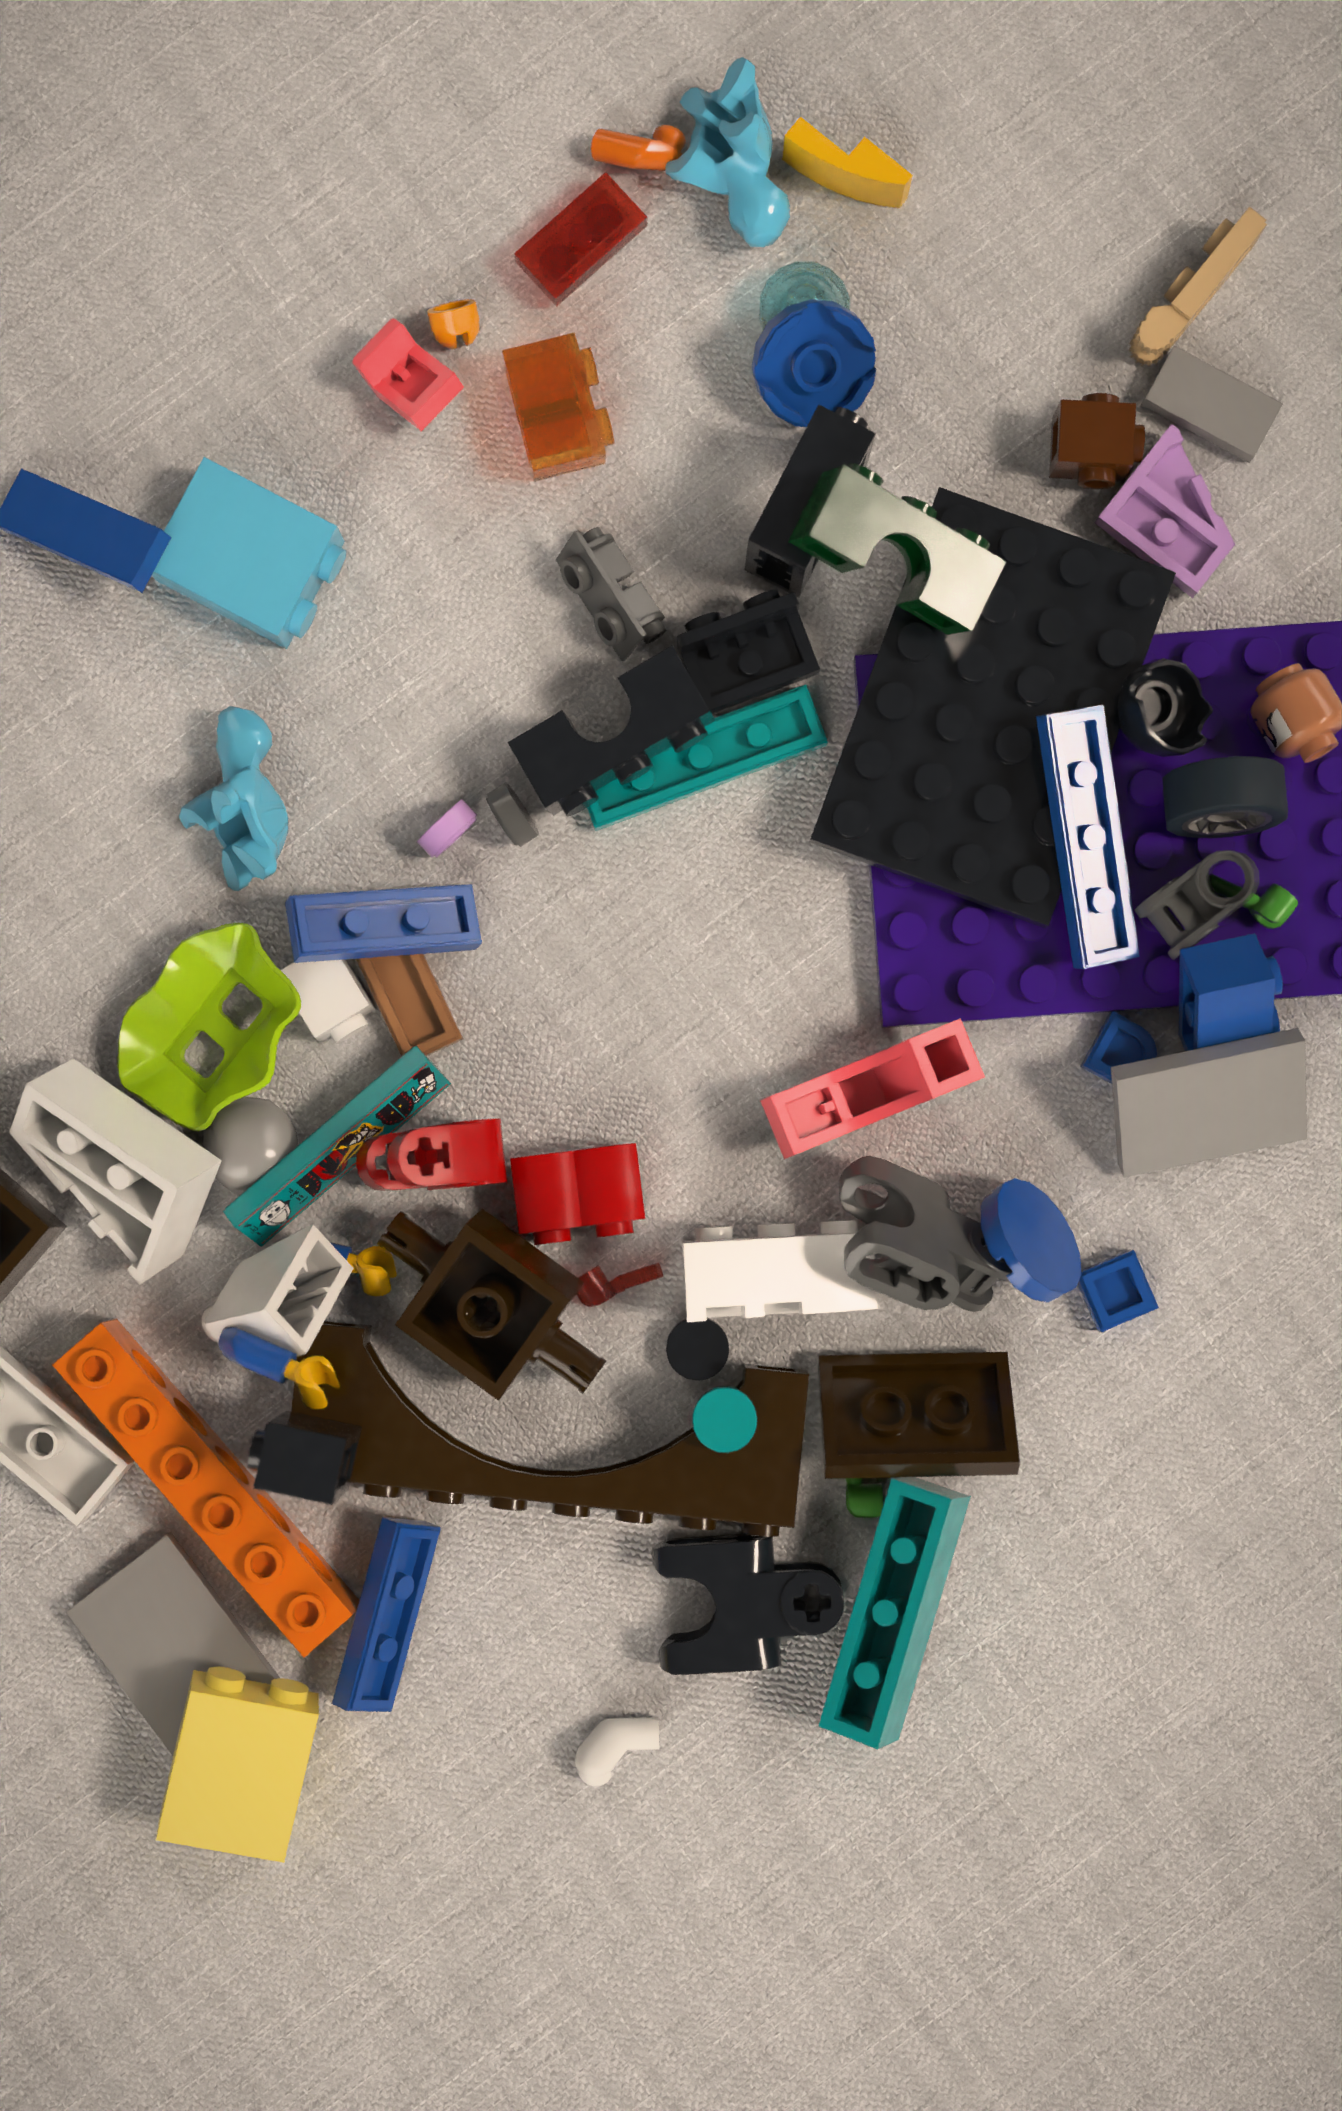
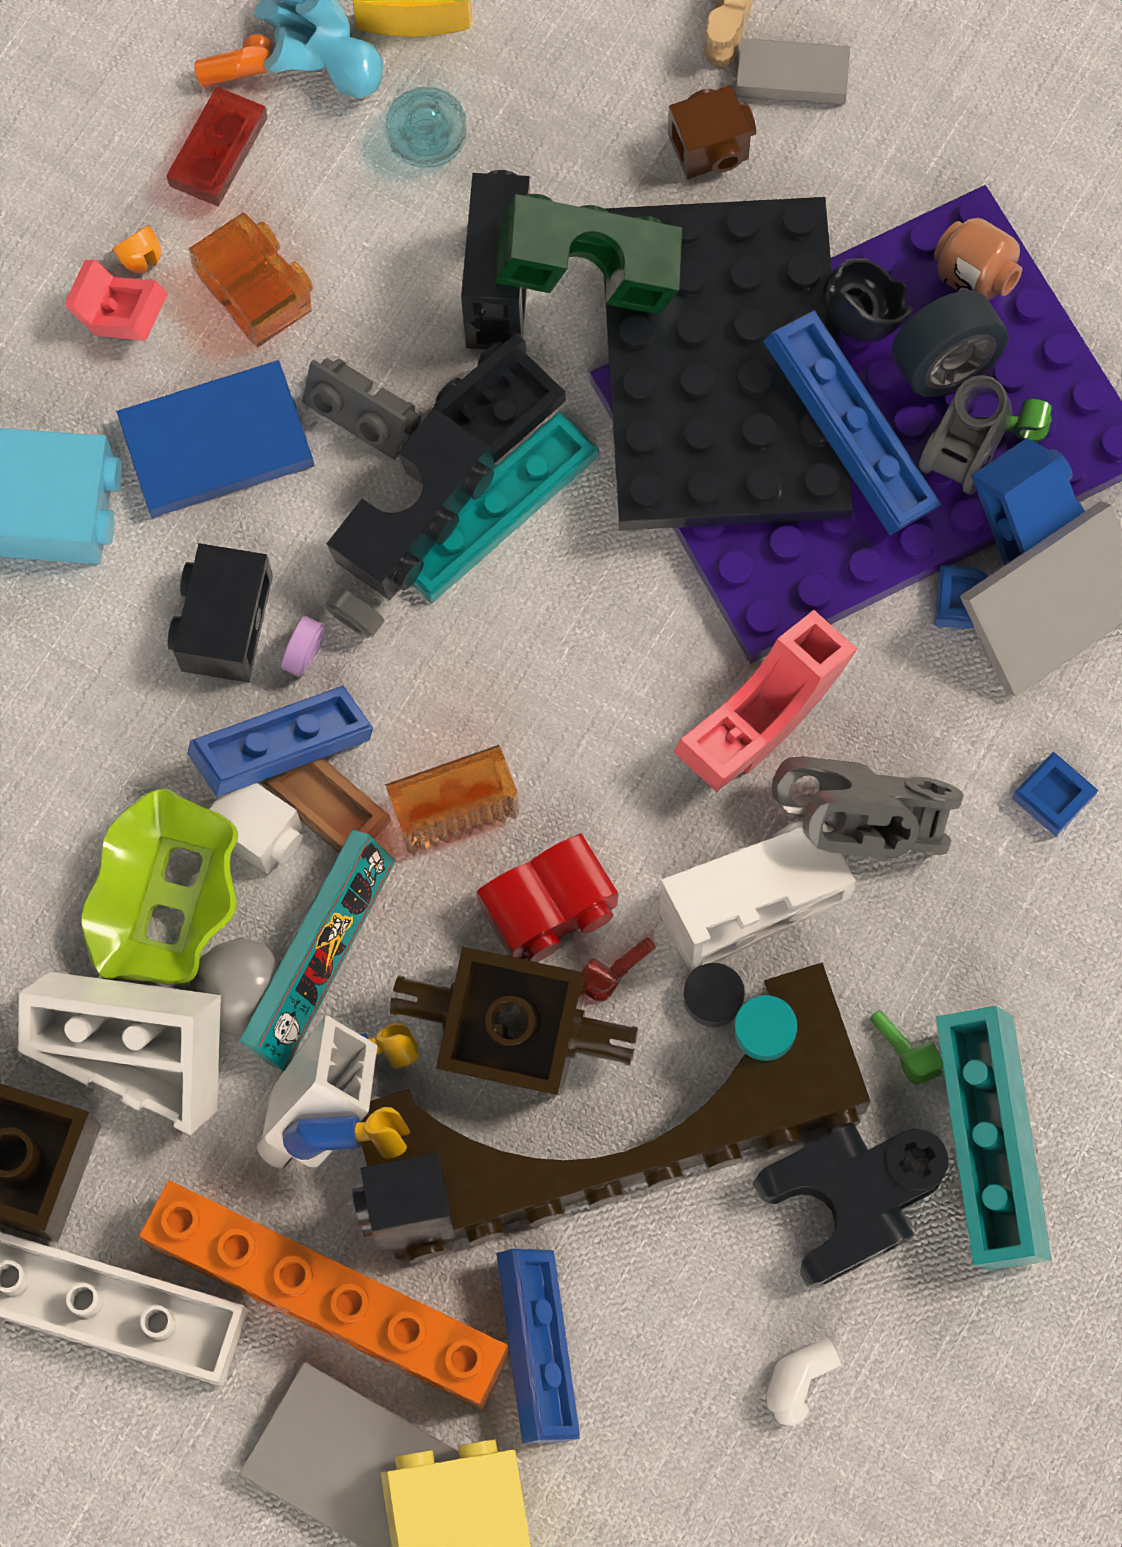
camera: 20 degrees left, 15 degrees down
(245, 806) = (120, 701): medium azure animal -> none
(381, 758) = (221, 612): none -> black brick
(436, 1157) = (424, 914): red piece -> none
(451, 564) = (215, 438): none -> blue tile
(525, 1054) = (453, 799): none -> clear orange brick
(811, 358) = (444, 151): blue tile -> none
(917, 1415) = (933, 961): dark brown plate -> none
(1032, 1239) = (973, 775): blue tile -> none
(1169, 516) = (799, 163): lavender wing -> none

